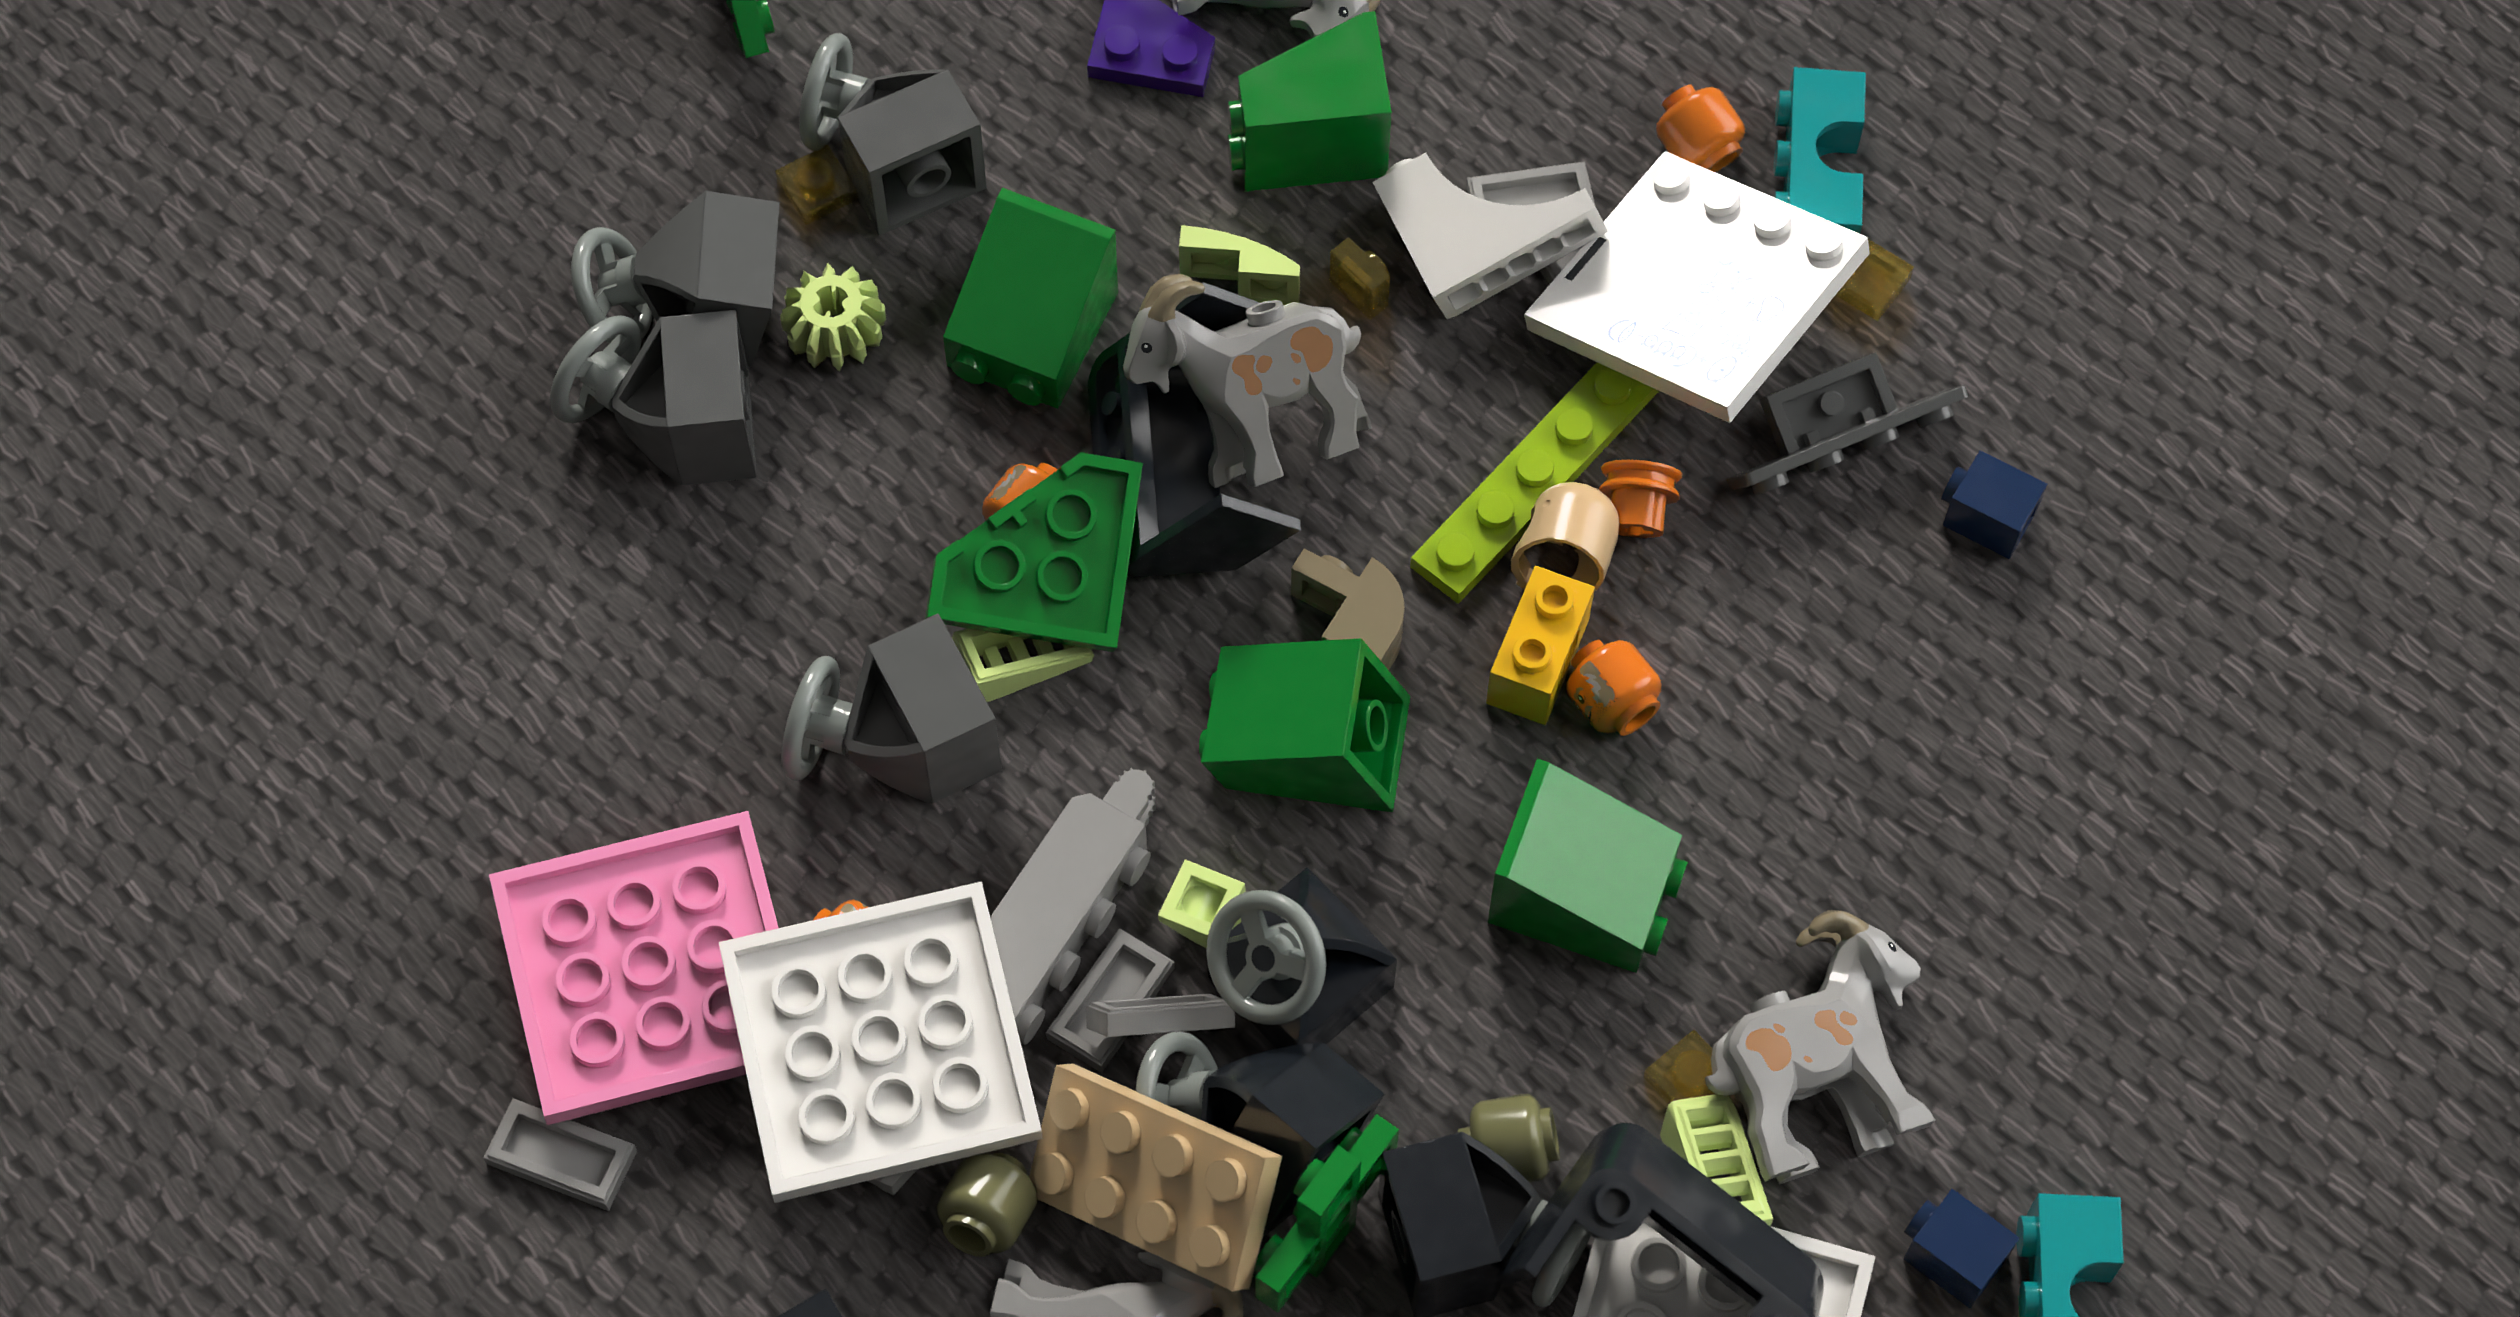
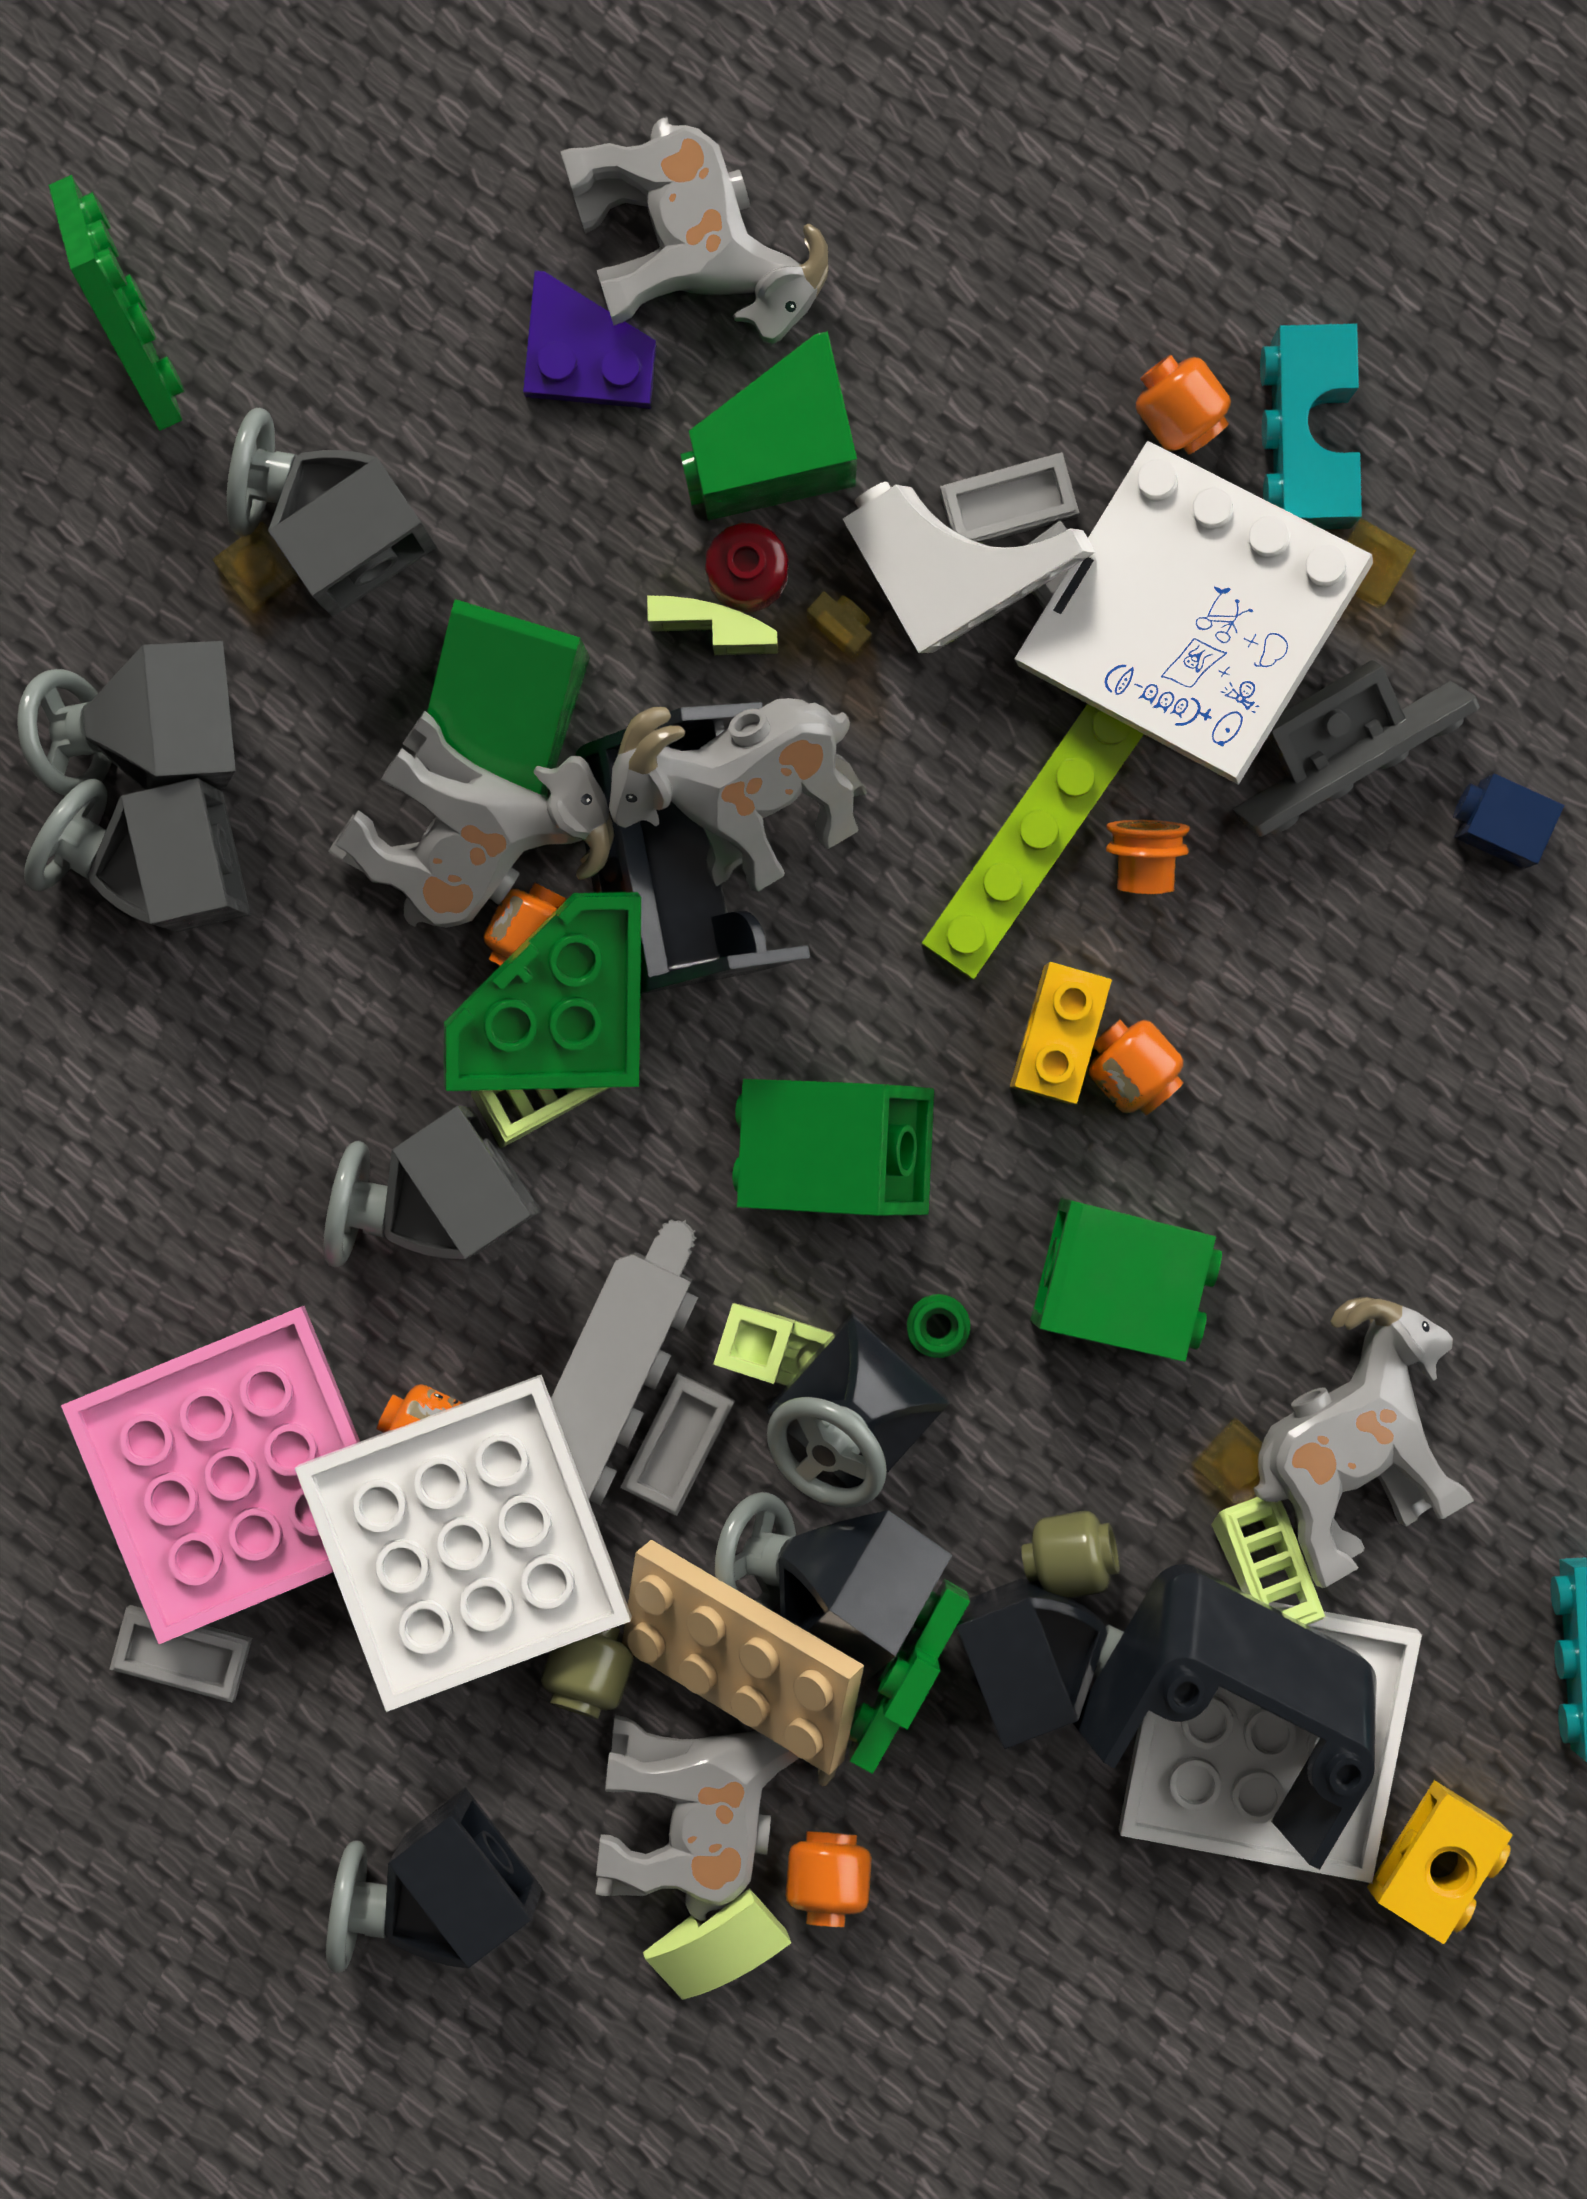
camera: 10 degrees left, 25 degrees up
(818, 334) = (321, 729): yellowish green gear -> none
(991, 404) = (476, 830): none -> light grey animal
(1159, 1015) = (720, 1475): light grey tile -> none
(1279, 214) = (747, 567): none -> dark red head
(1361, 606) = (889, 1019): dark tan brick -> none
(1397, 894) = (945, 1345): none -> green plate
(1573, 516) = (1082, 903): tan helmet -> none
(1958, 1246) = (1498, 1613): dark blue brick -> none

